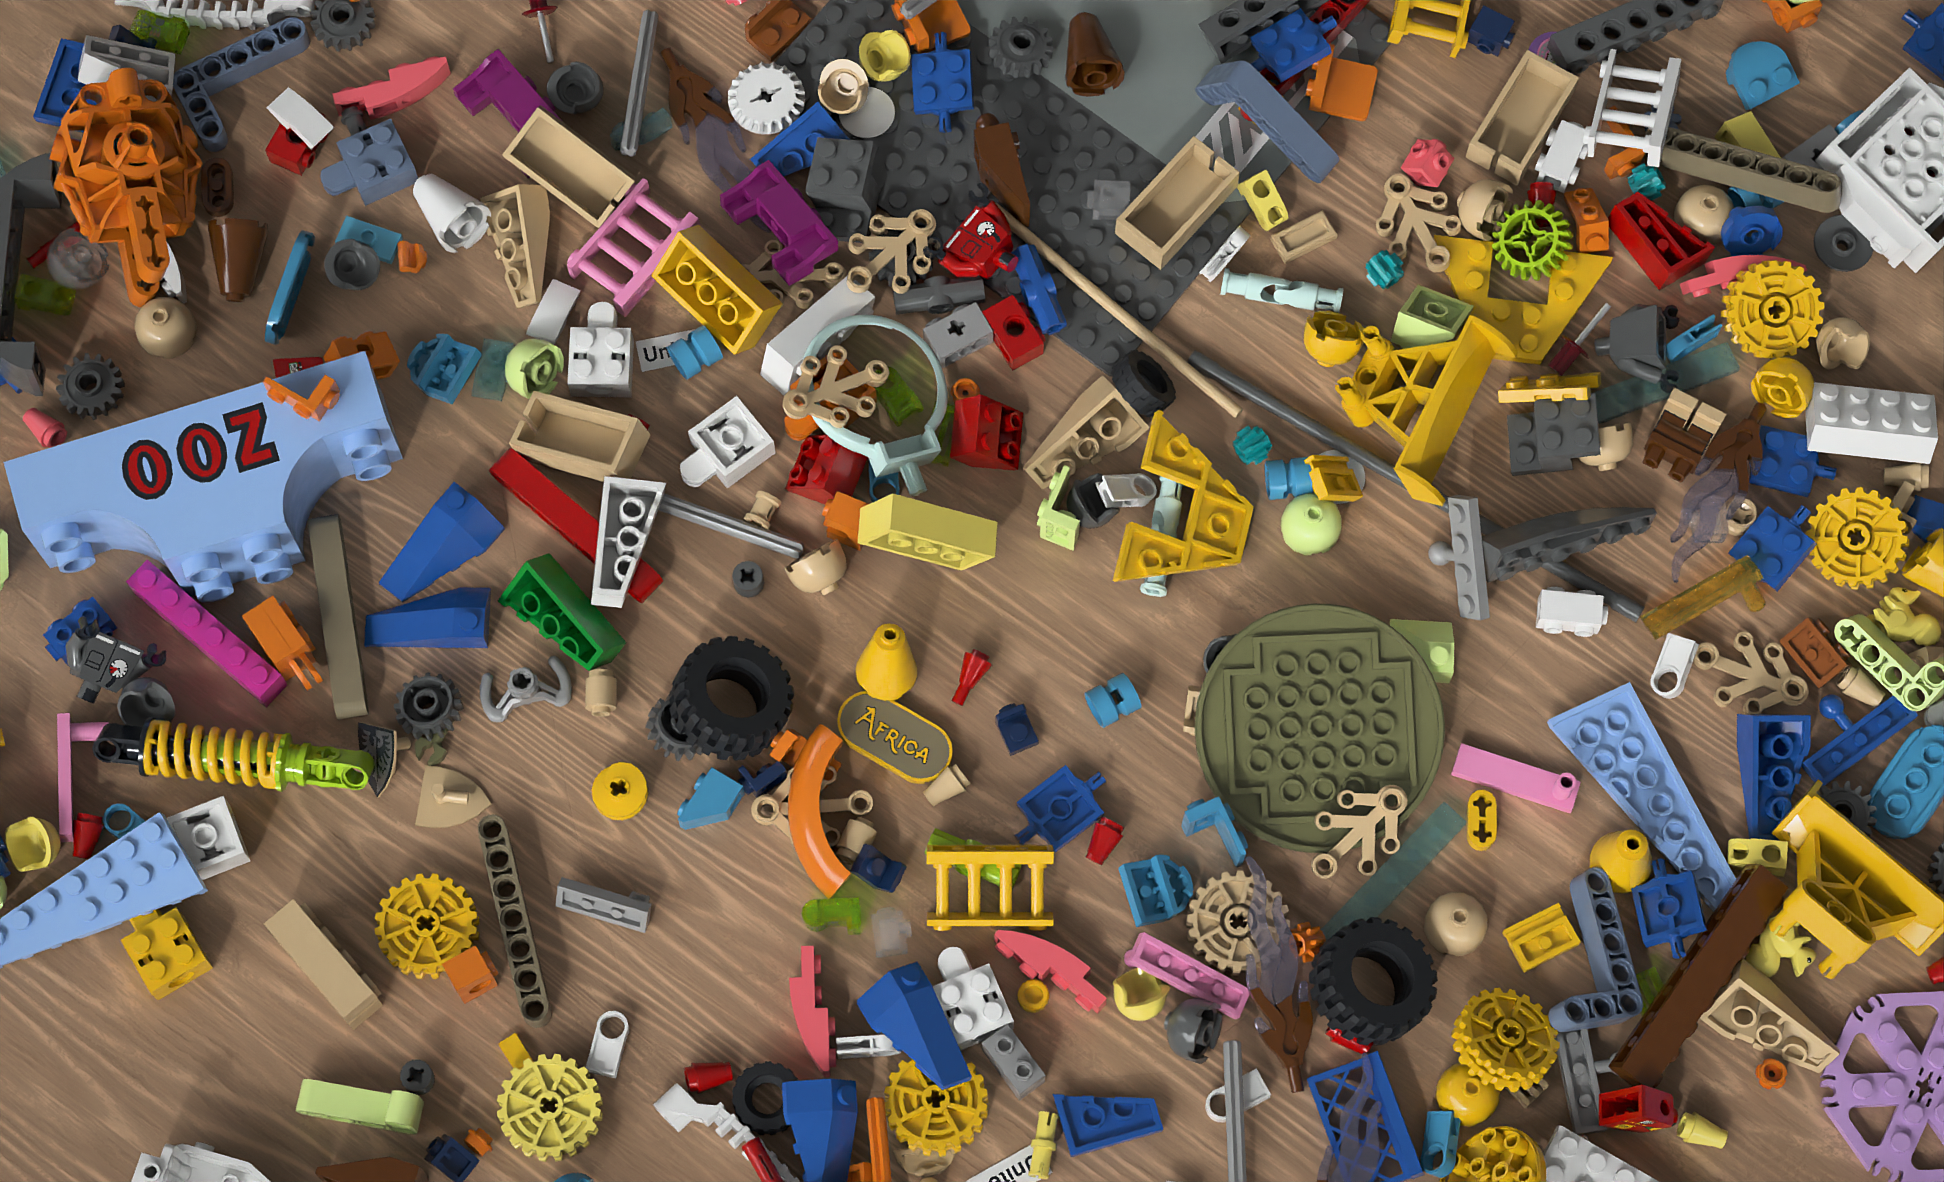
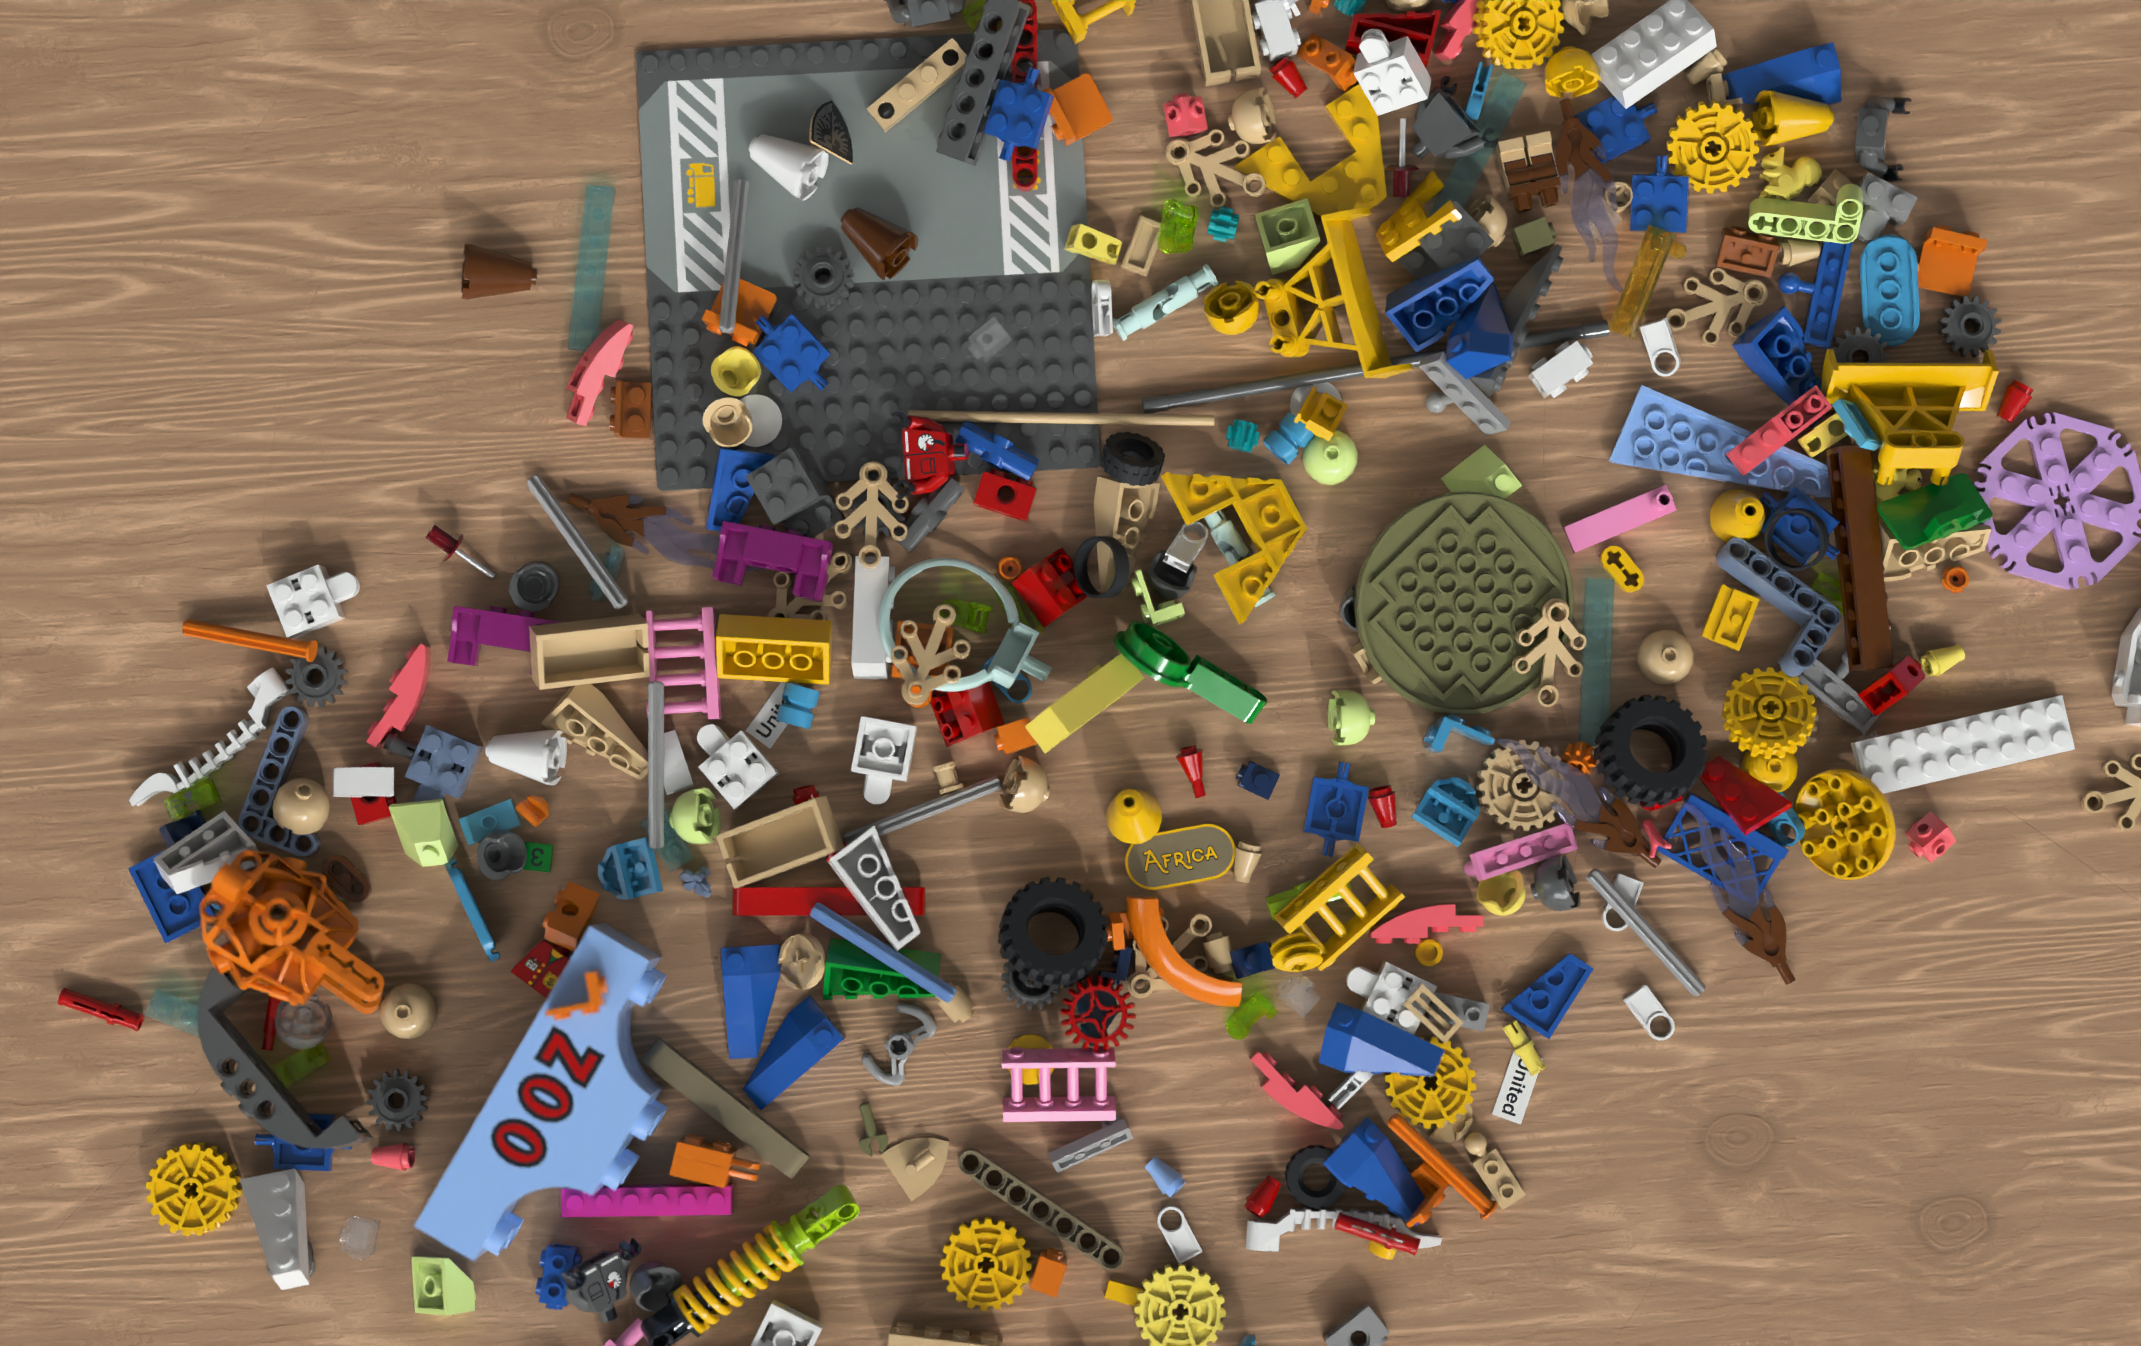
camera: 45 degrees left, 15 degrees up
(174, 280) = (389, 974): white slope -> none
(236, 100) = (301, 806): none -> tan cylinder
(237, 255) = (411, 918): reddish brown cone -> none
(312, 197) = (425, 831): none -> yellowish green slope
(379, 297) = (538, 857): none -> green tile
(382, 746) = (845, 1173): shield -> none
(432, 720) = (832, 1119): dark grey gear -> none
(486, 420) = (697, 881): none -> sand blue plant
(508, 551) = (801, 961): none -> tan tile
(538, 298) = (656, 764): none -> light grey axle
(579, 593) = (883, 952): none -> medium blue axle
(596, 840) = (1058, 1108): none -> bright pink fence
(641, 988) = (1165, 1177): none -> light blue cone
(702, 805) = (1103, 1036): none -> red gear
(752, 584) = (985, 835): dark grey wheel -> none
(757, 114) = (695, 468): white gear -> none
(918, 889) = (1295, 953): none -> yellow piece
(951, 347) = (980, 521): light grey brick -> none
(991, 1063) = (1415, 997): none -> tan tile
(999, 165) = (889, 383): reddish brown slope -> none
(1028, 566) = (1171, 665): none -> green beam
(1052, 456) = (1122, 567): none -> black tyre
(1103, 705) = (1304, 713): dark azure wheel -> none
(1140, 741) = (1349, 717): none -> yellowish green cylinder
(1176, 203) = (1039, 303): tan piece -> none
(1271, 113) = (1045, 179): sand blue beam -> none
(1314, 1065) = (1654, 837): none -> coral bar
(1349, 238) = (1177, 226): none -> clear neon green piece
(1421, 1090) = (1742, 796): none -> red wing
(1505, 465) = (1432, 303): none -> blue wedge
(1518, 516) = (1480, 336): none -> blue wedge
(1544, 239) = (1318, 123): lime gear -> none
(1628, 257) = (1390, 72): none -> white brick
(1638, 891) = (1768, 539): none -> black tyre
(1639, 489) = (1533, 237): none -> olive brick
(1717, 813) = (1779, 430): none -> coral slope
(1790, 859) = (1856, 424): none -> medium azure plate
(1799, 992) = (1934, 511): none -> green bracket

